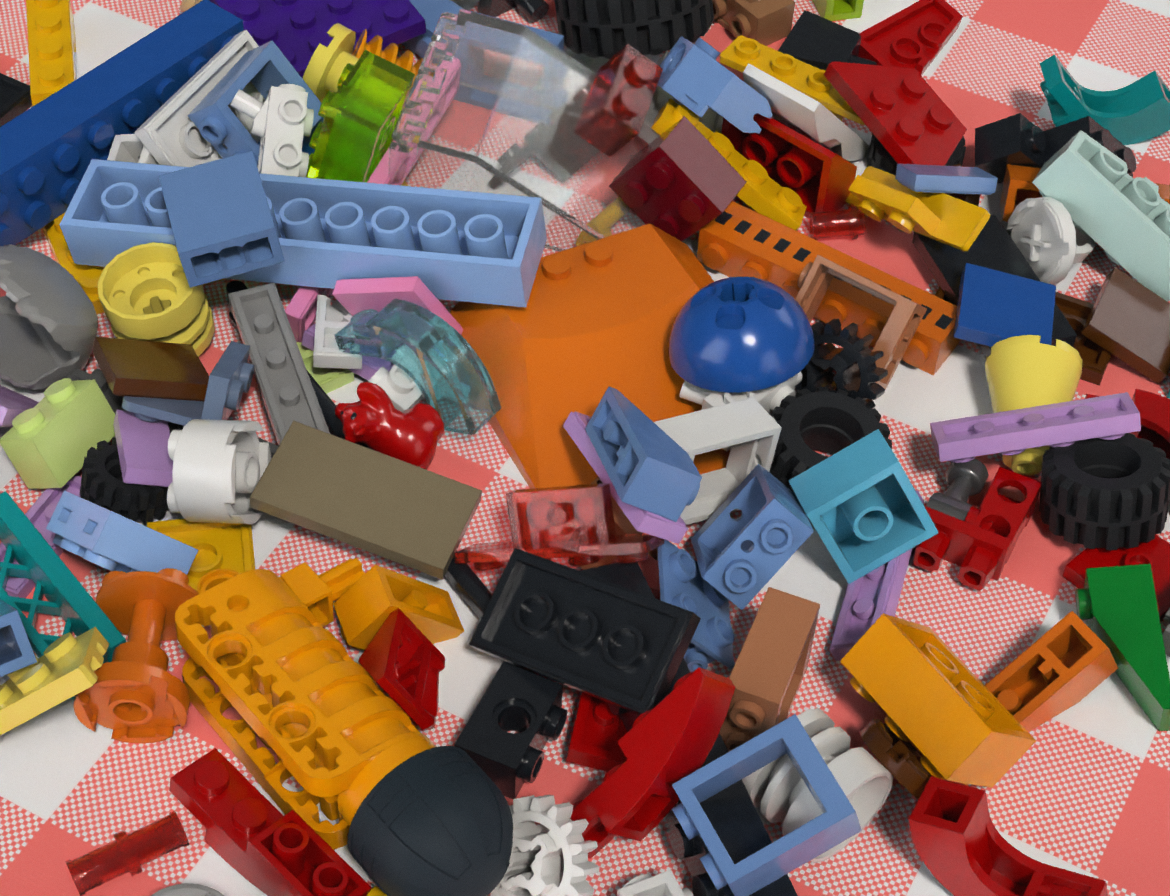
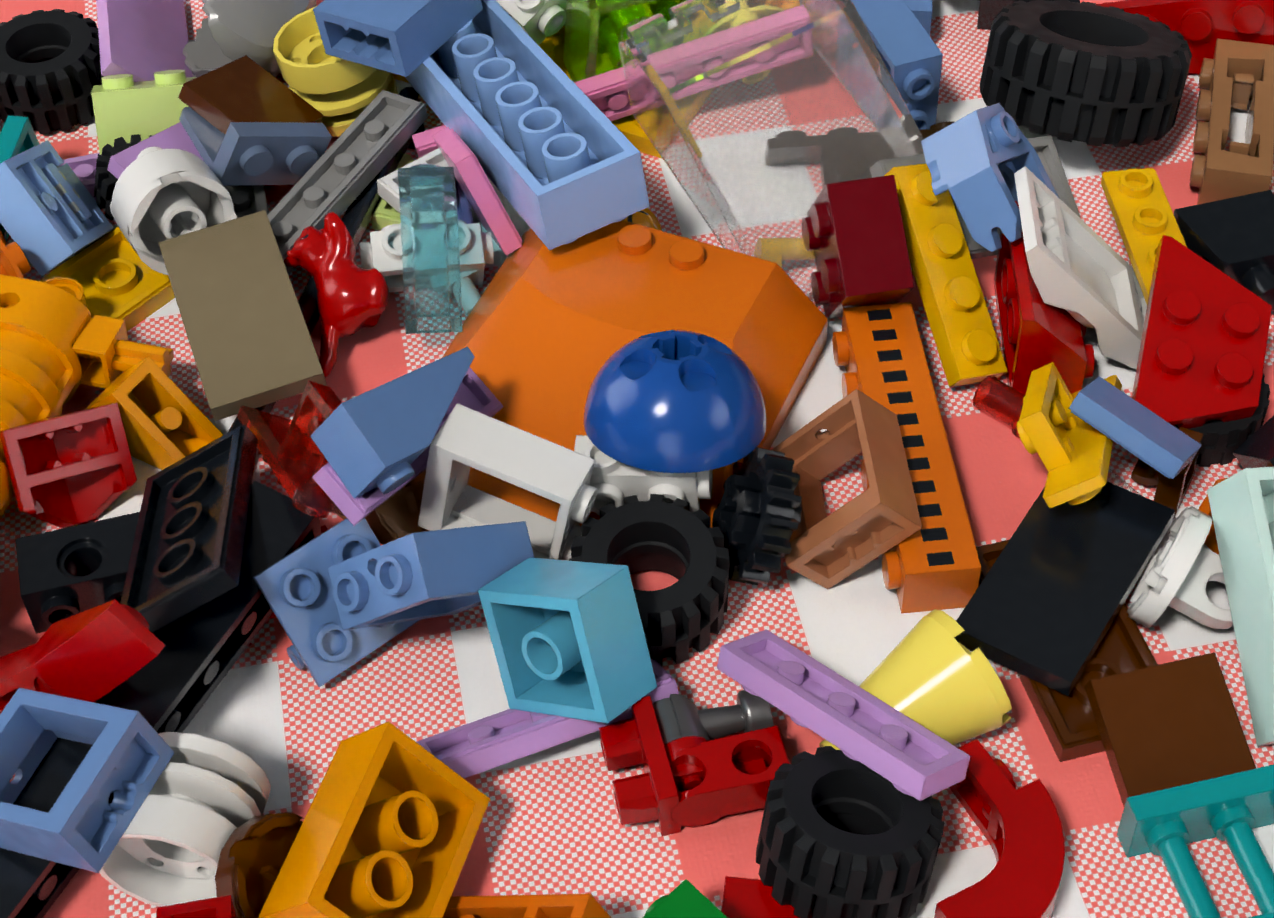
camera: 55 degrees right, 0 degrees up
(618, 100) = (879, 129): clear red brick -> none
(770, 666) = (281, 675): nougat window -> none
(1002, 306) = (1013, 596): blue tile -> none

